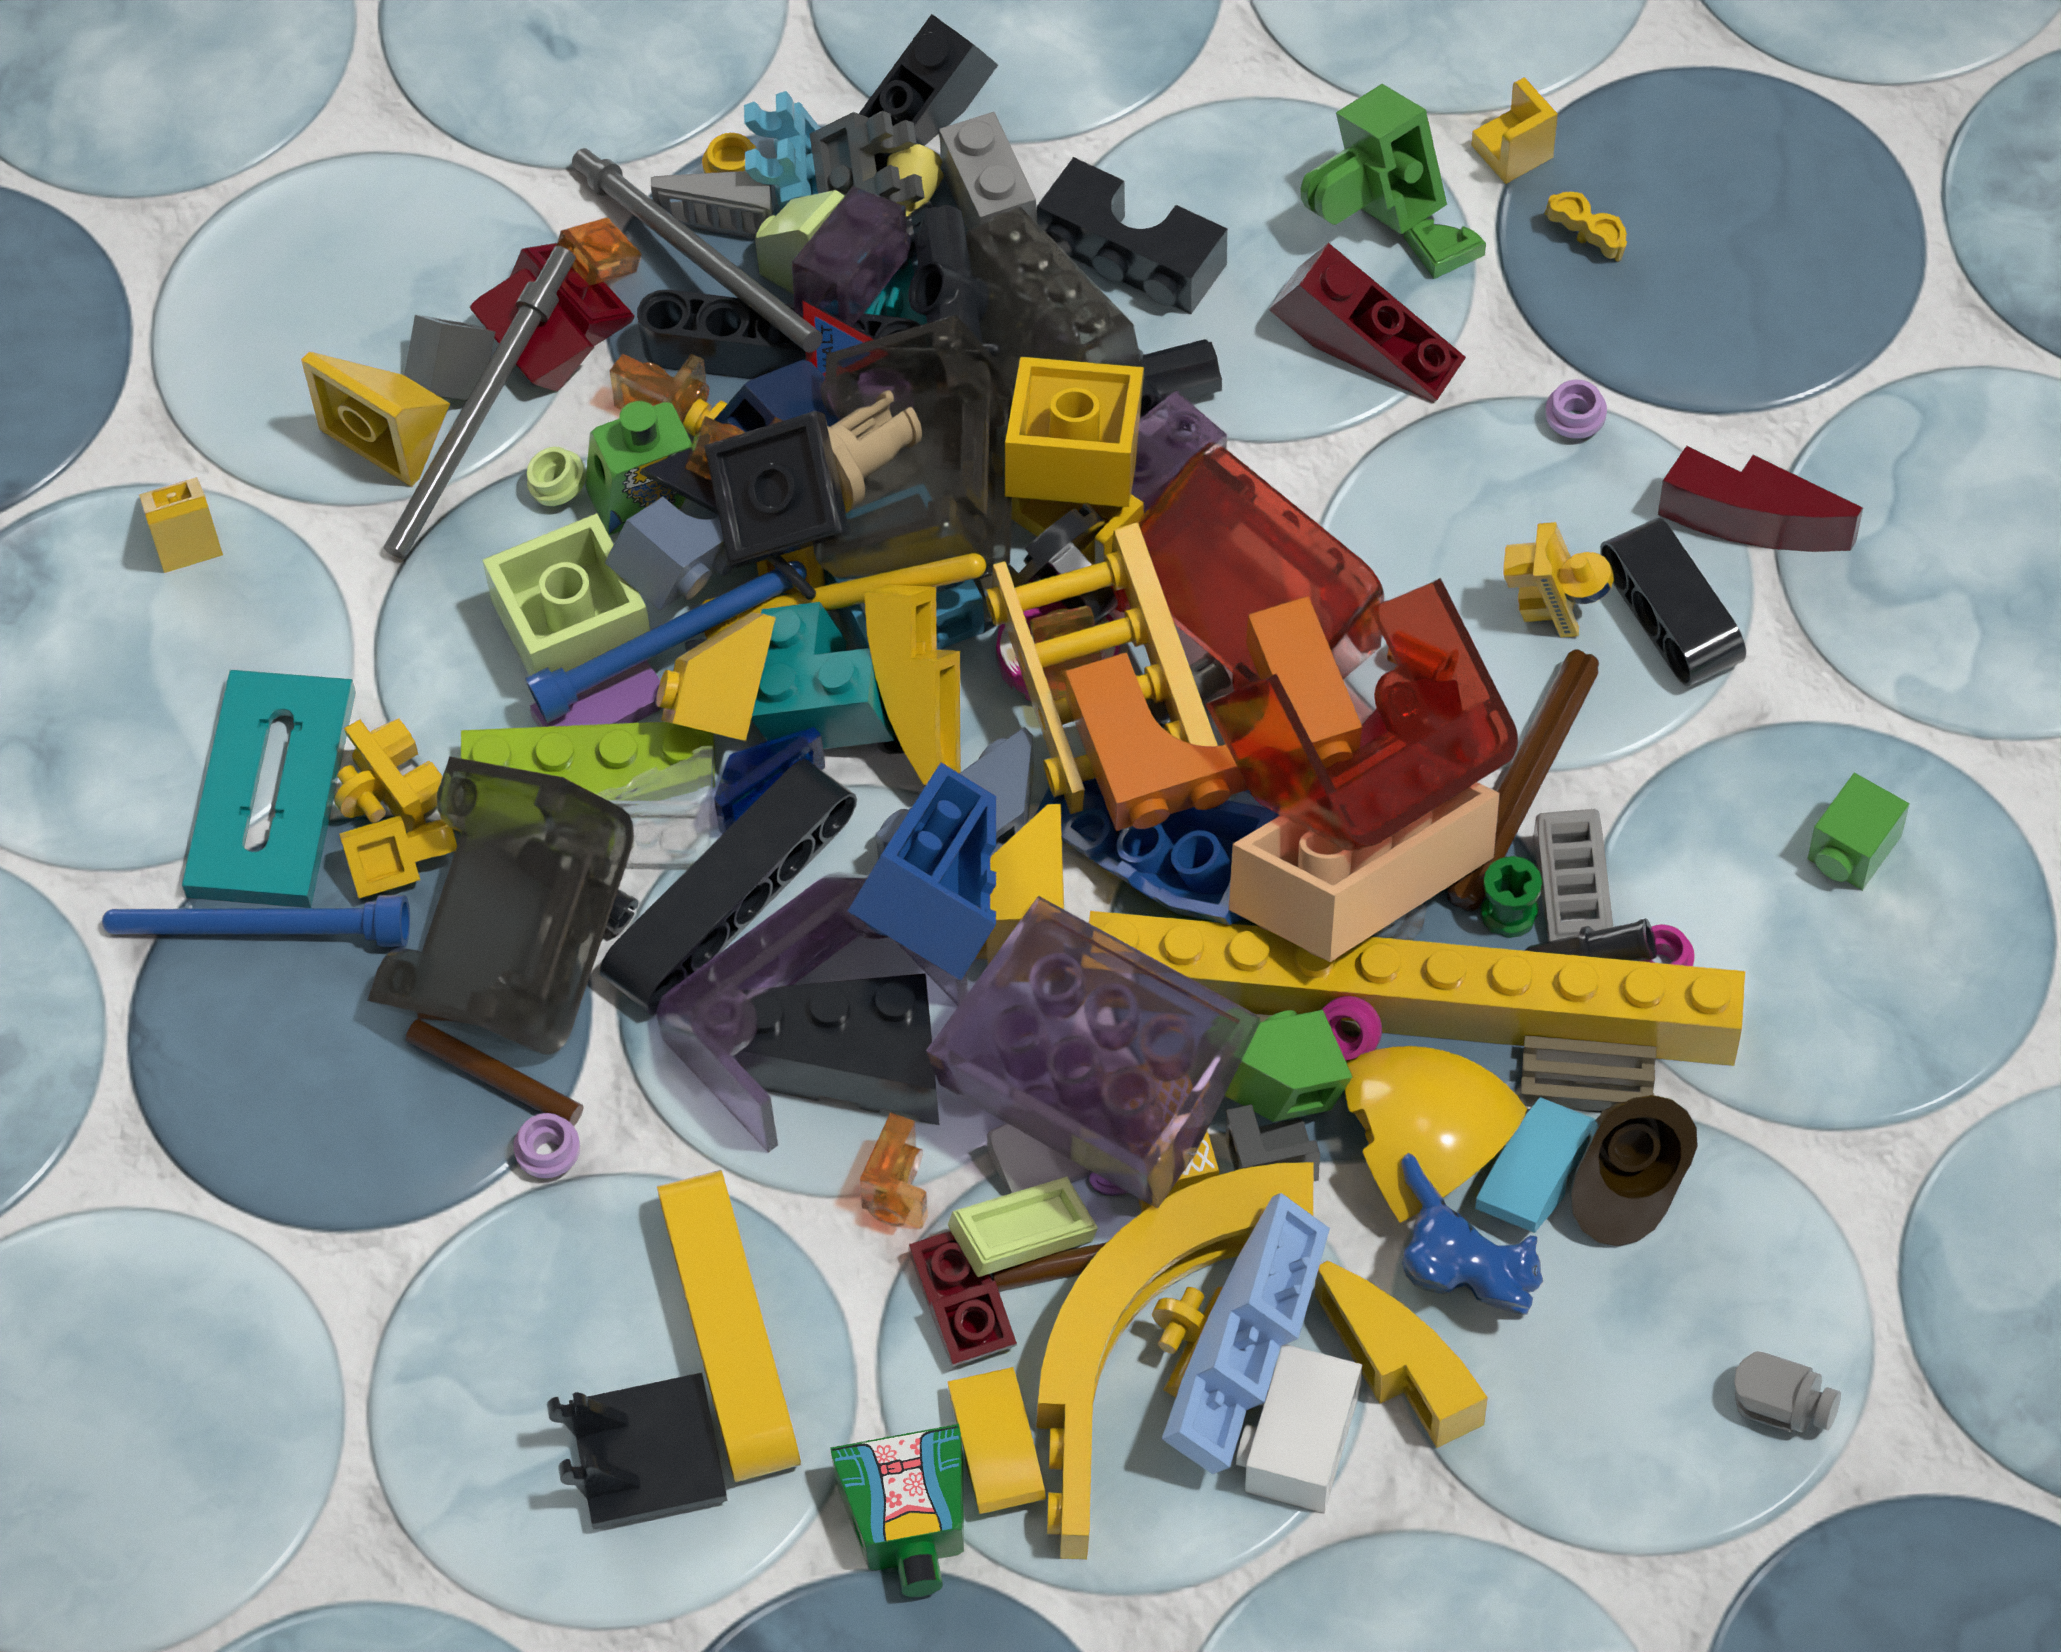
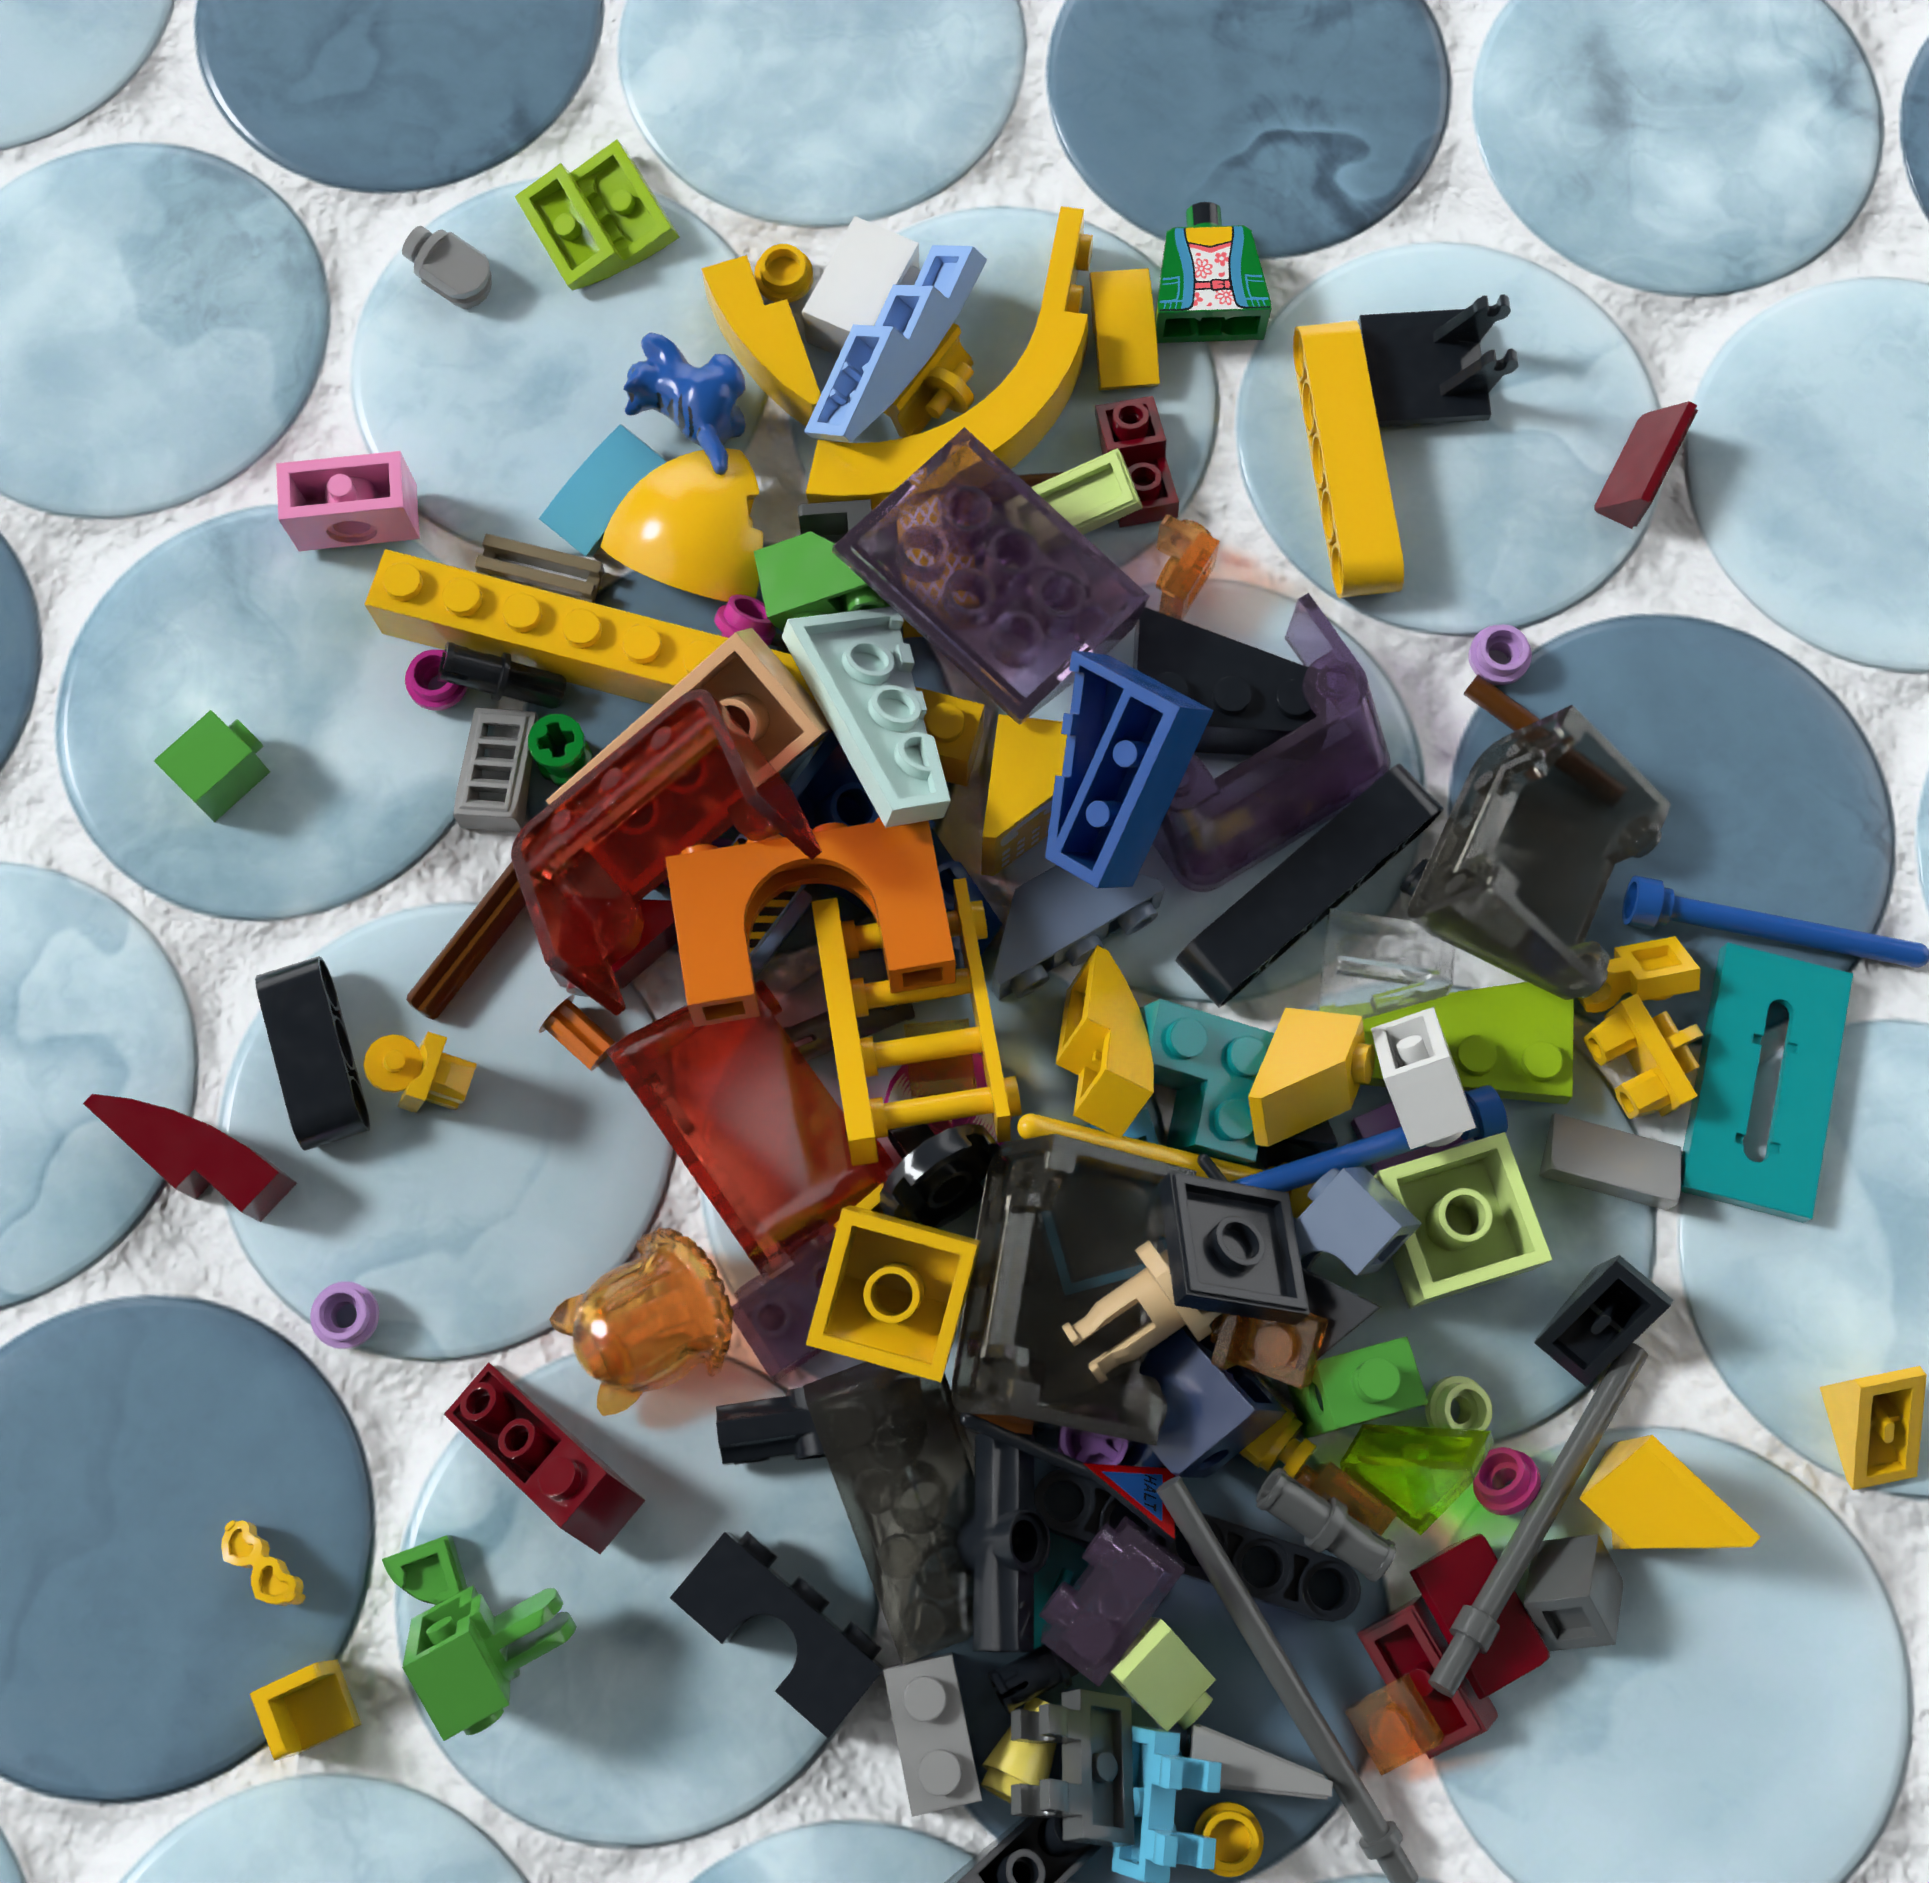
camera: 175 degrees left, 15 degrees up
(393, 1372) = (1644, 463): none -> dark red slope
(419, 689) = (1612, 1162): none -> light grey slope
(425, 563) = (1602, 1319): none -> black slope
(525, 427) = (1499, 1468): none -> dark pink plate
(576, 405) = (1416, 1468): none -> clear neon green slope
(612, 676) = (1422, 1080): none -> white brick
(672, 345) = (1326, 1525): none -> dark grey pin
(758, 767) = (1265, 998): clear blue slope -> none
(1187, 894) = (870, 700): none -> light aqua wing
(1302, 424) = (649, 1320): none -> clear orange hair
(1399, 1450) = (783, 273): none -> yellow plate
(1632, 1168) = (520, 474): dark brown piece -> none
(1634, 1491) = (596, 217): none -> lime slope
(1803, 1093) = (347, 501): none -> bright pink brick

